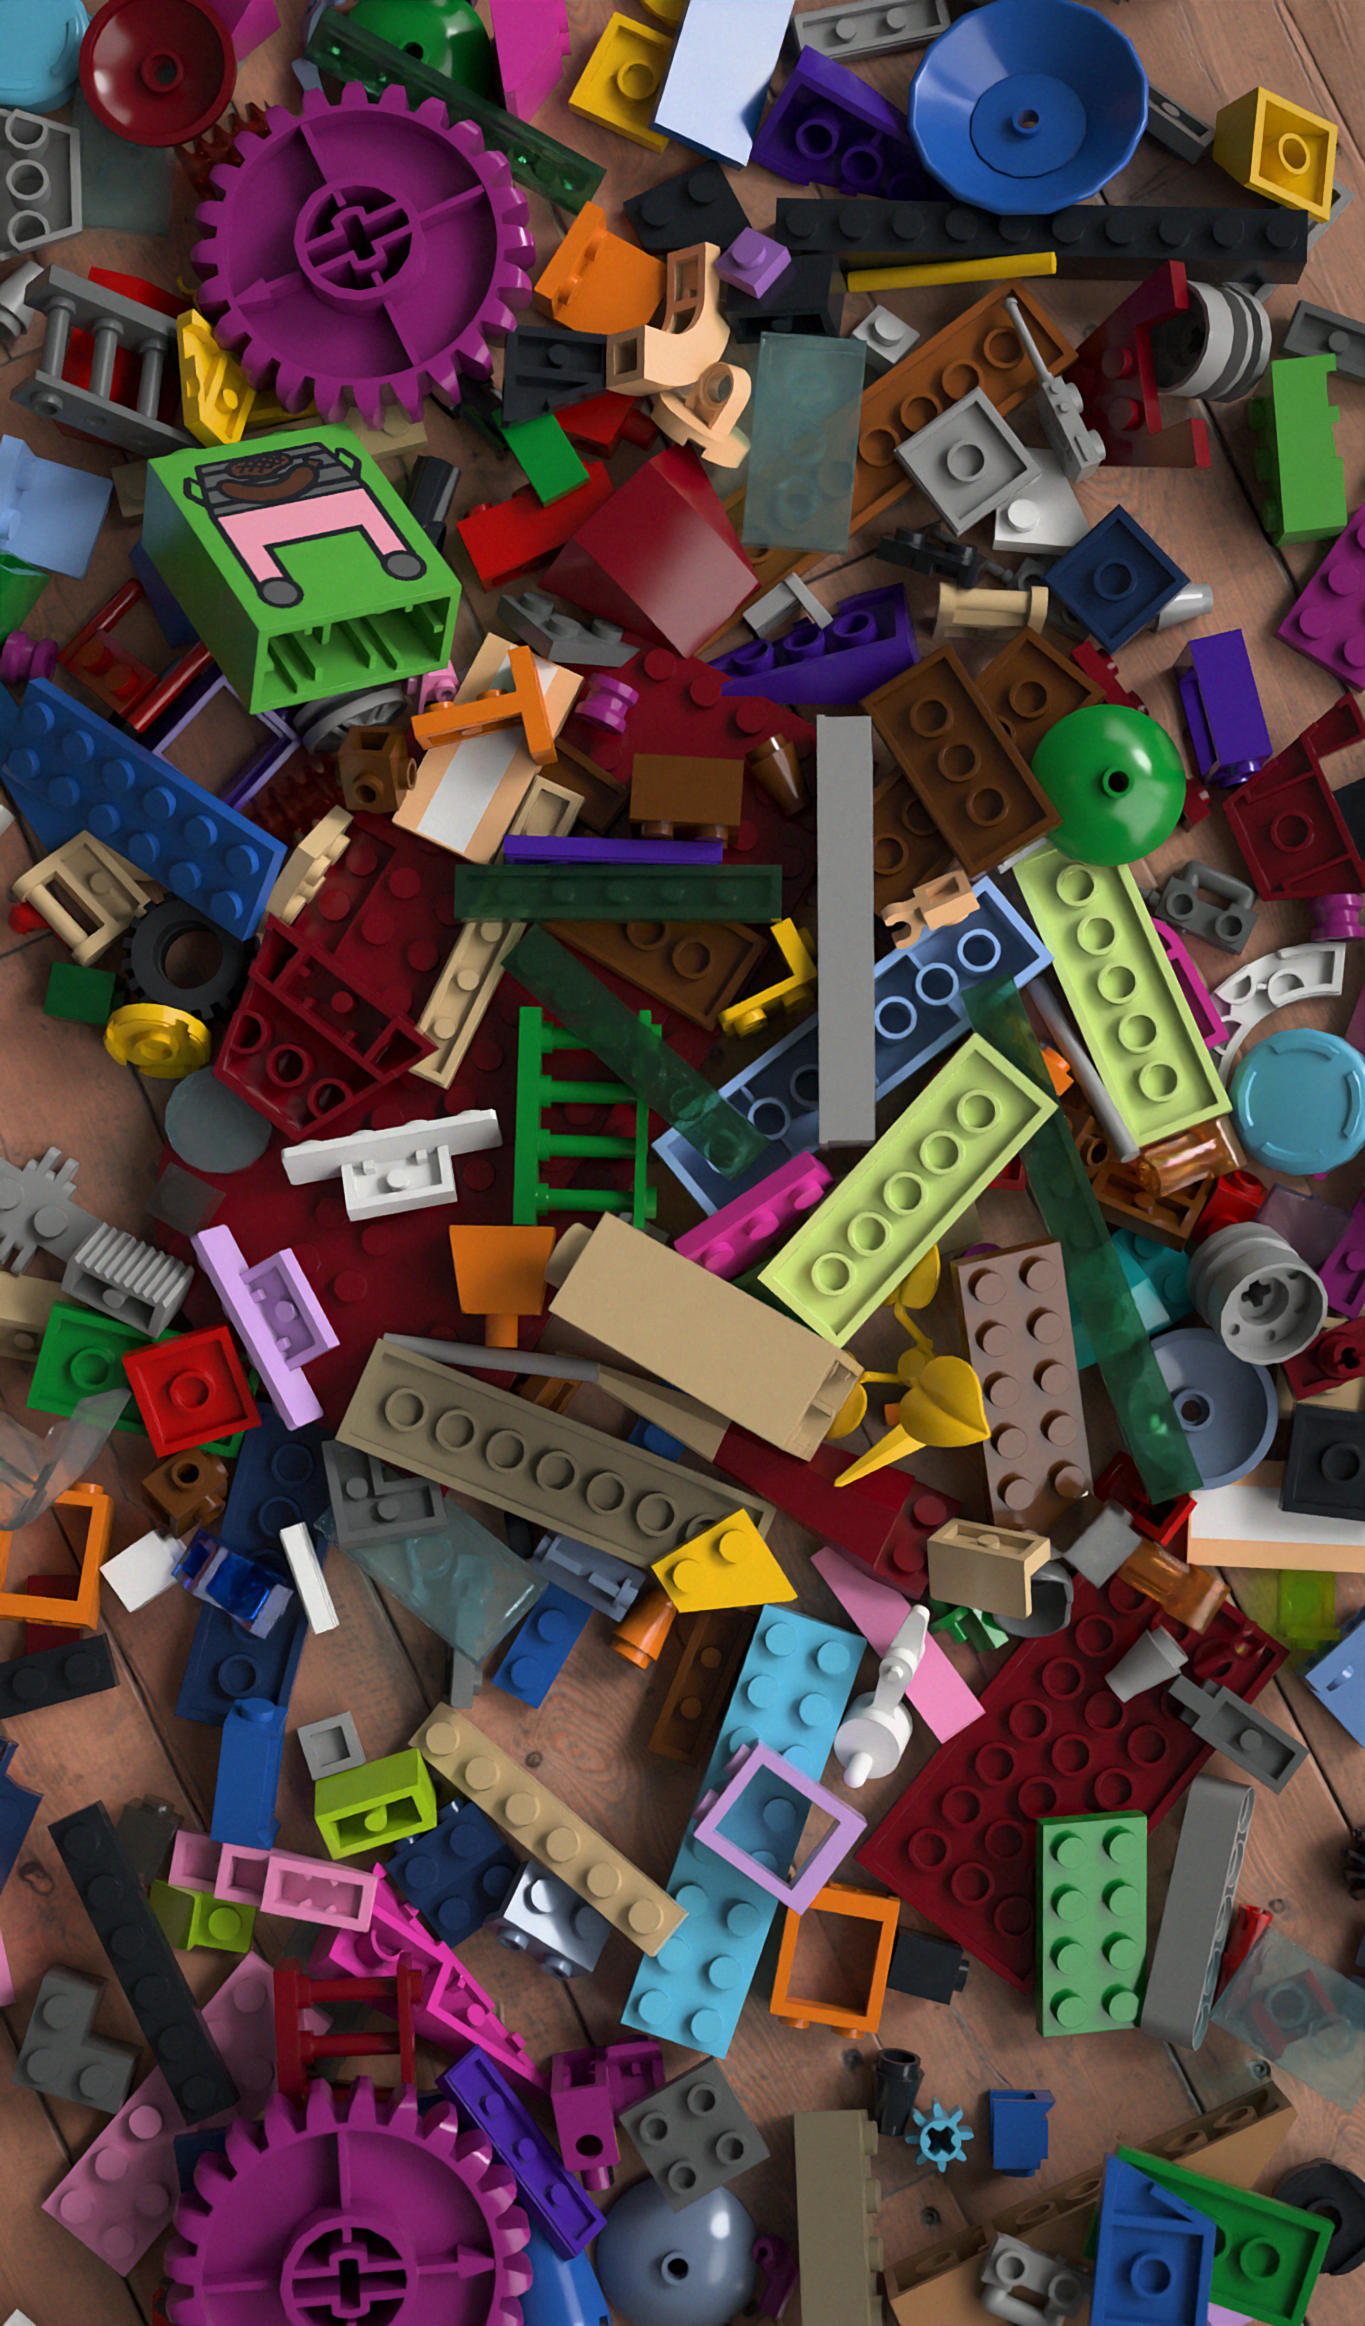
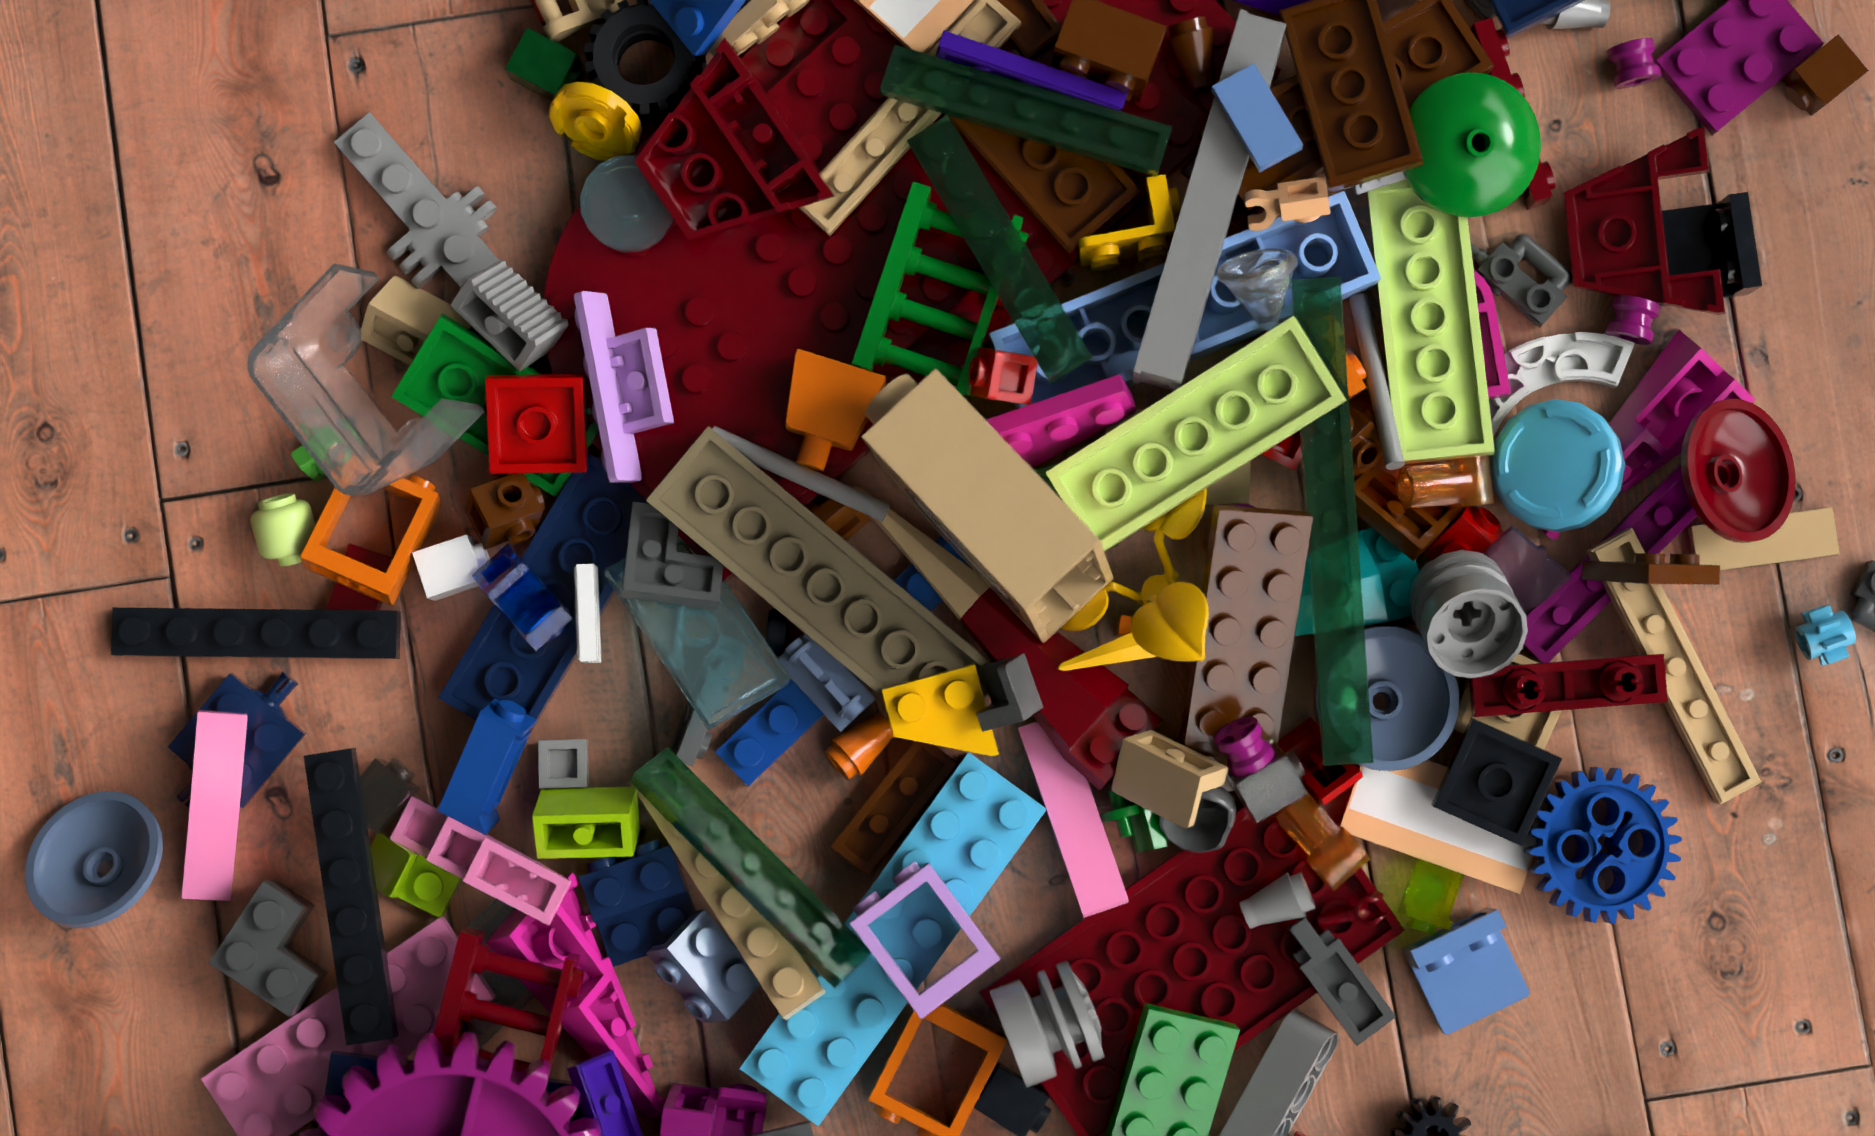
camera: 10 degrees right, 0 degrees up
(183, 1200) = (578, 260): clear smoke brick -> none
(394, 1166) = (766, 285): white bracket -> none
(567, 1802) = (751, 867): none -> clear green plate
(679, 1188) = (1002, 375): none -> red bracket
(792, 1526) = (1010, 691): none -> dark grey panel
(870, 828) = (1256, 117): none -> medium blue tile
(878, 1722) = (1033, 883): white piece -> none
(926, 1002) = (1260, 282): none -> clear hat
(938, 1875) = (1048, 1023): none -> light grey wheel
(1060, 1510) = (1244, 746): none -> magenta wheel
(1222, 709) = (1588, 110): dark purple window -> none
(1260, 639) = (1633, 63): none -> magenta wheel

